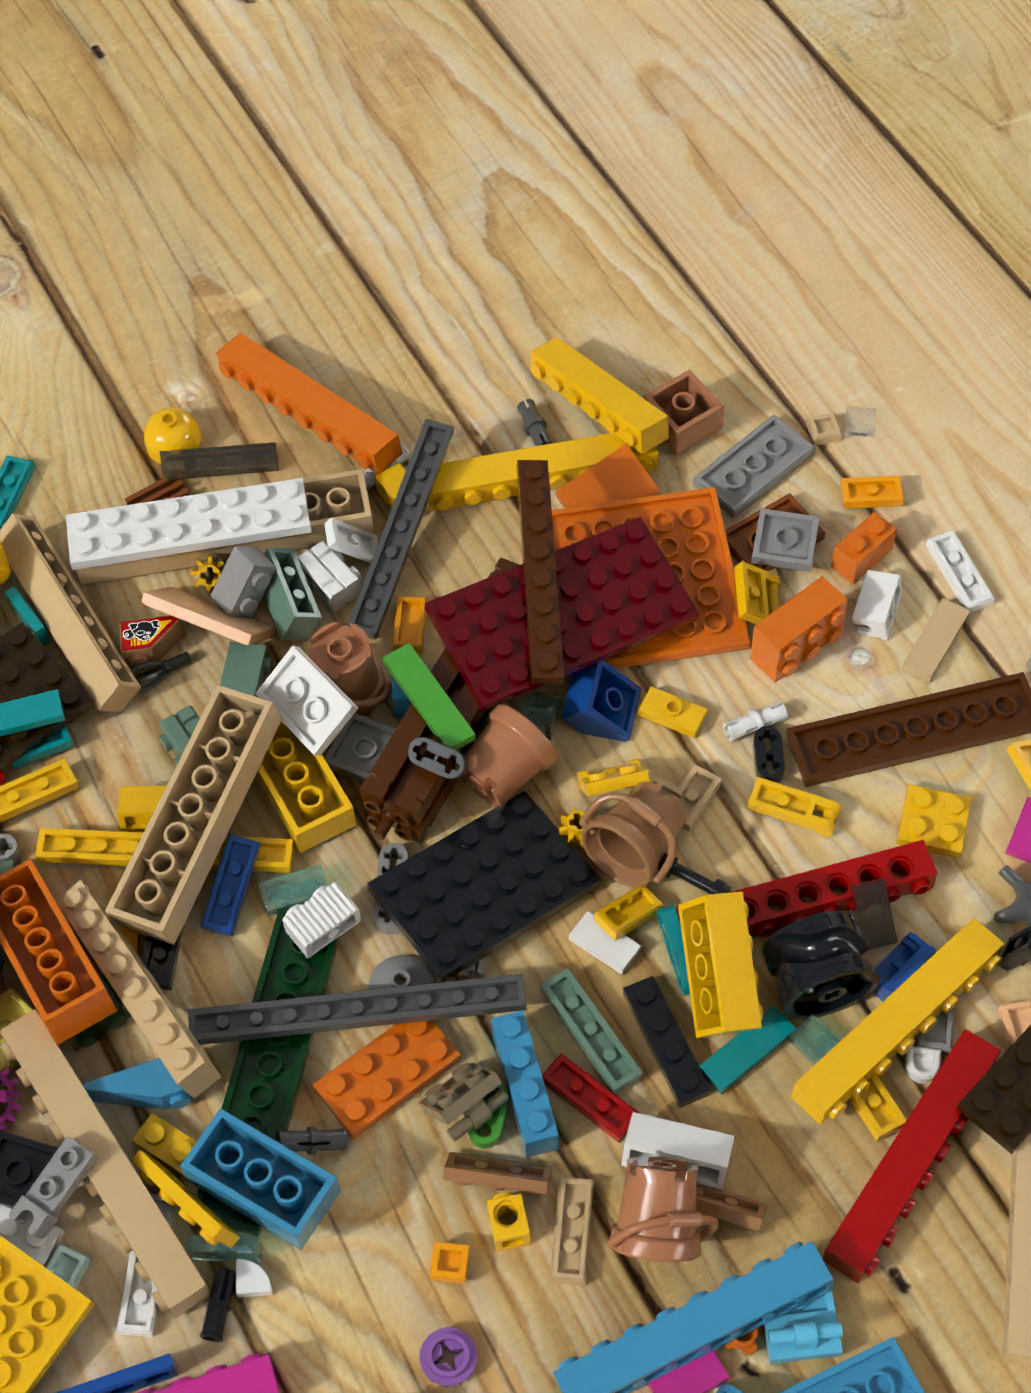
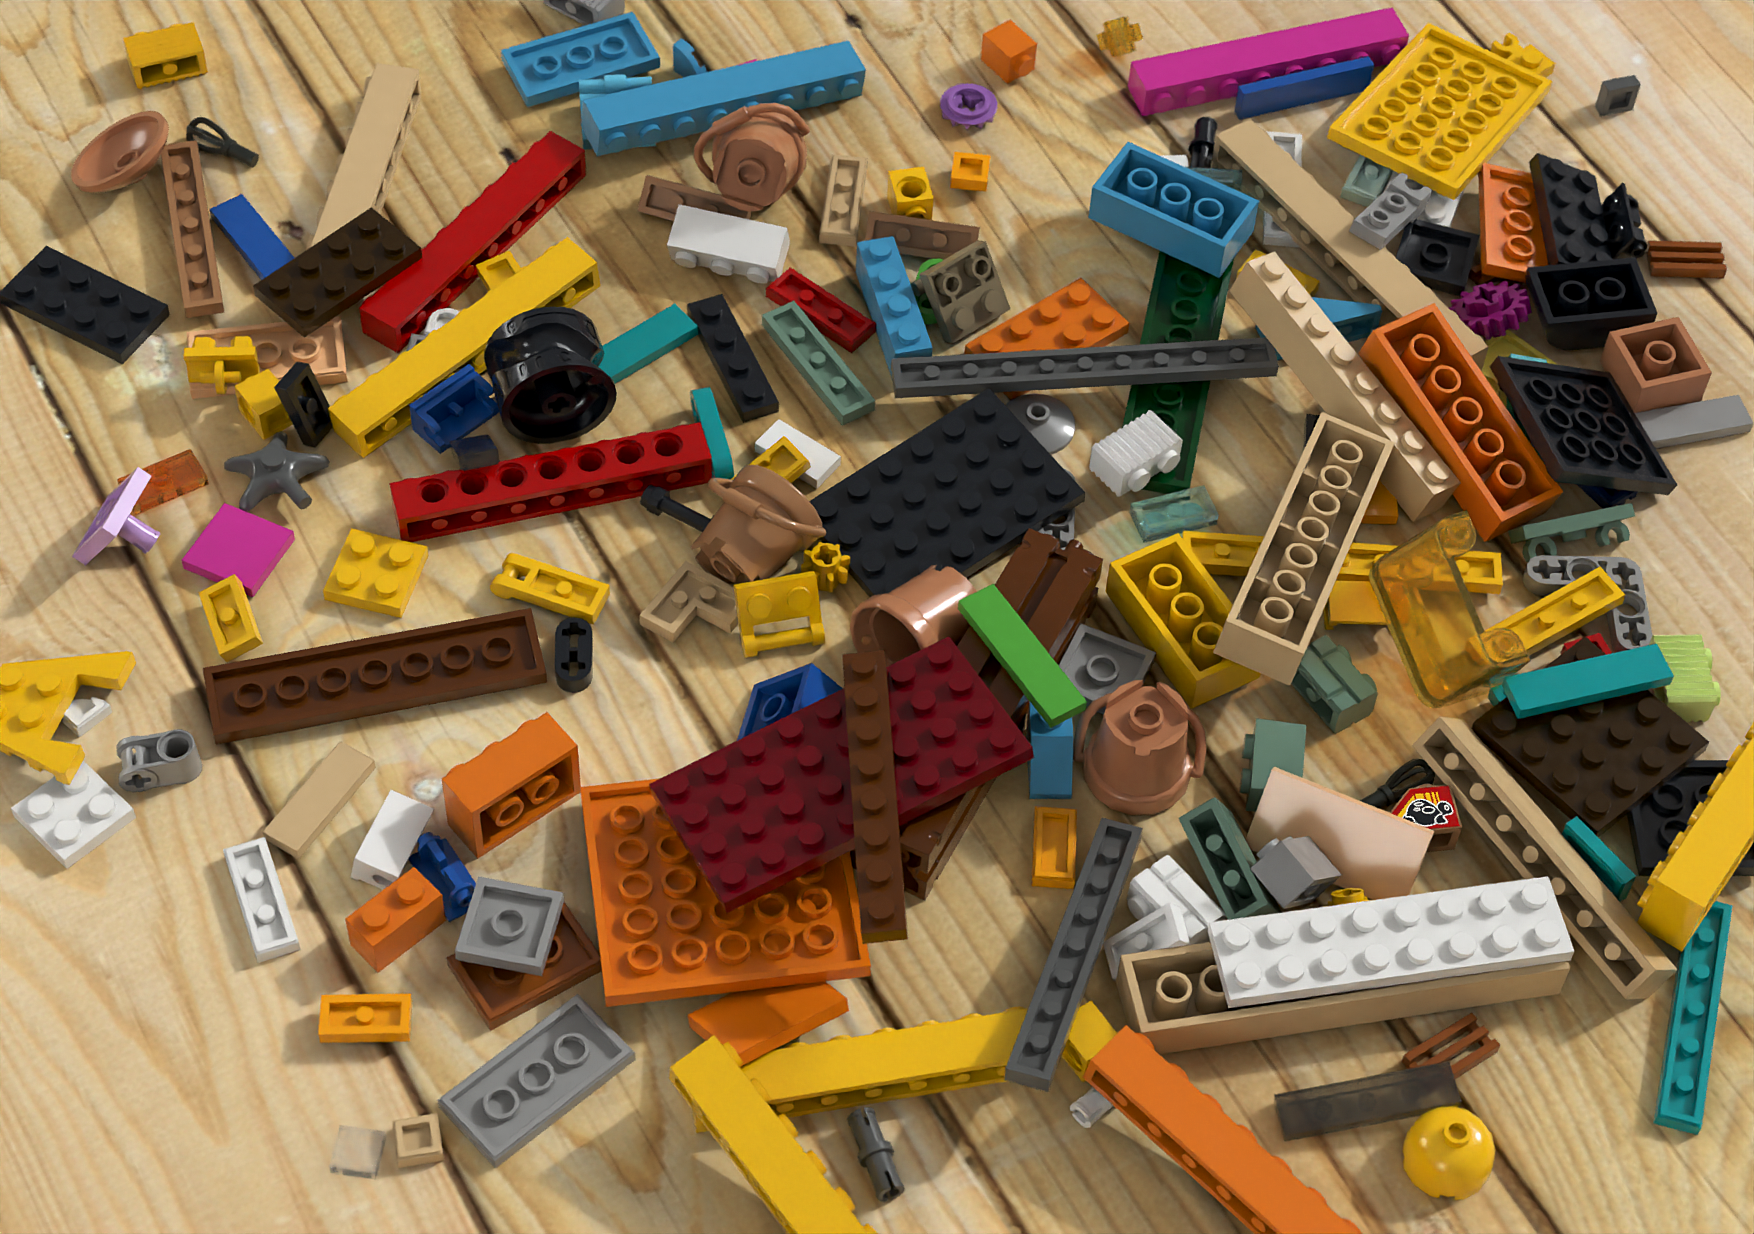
camera: 175 degrees right, 5 degrees down
(97, 768) = (1436, 620): none -> clear yellow windscreen
(192, 1208) = (1272, 226): yellow plate -> none
(230, 885) = (1251, 513): blue tile -> none
(307, 700) = (1182, 660): white plate -> none
(313, 1140) = (1124, 265): dark grey pin -> none
(435, 764) = (1005, 571): beam -> none
(672, 712) = (694, 715): yellow plate -> none
(690, 410) = (640, 1146): nougat brick -> none
(720, 965) = (666, 370): yellow brick -> none
(754, 720) = (586, 695): white pin -> none
(755, 592) = (561, 842): yellow plate -> none
(830, 572) = (445, 872): none -> blue hinge

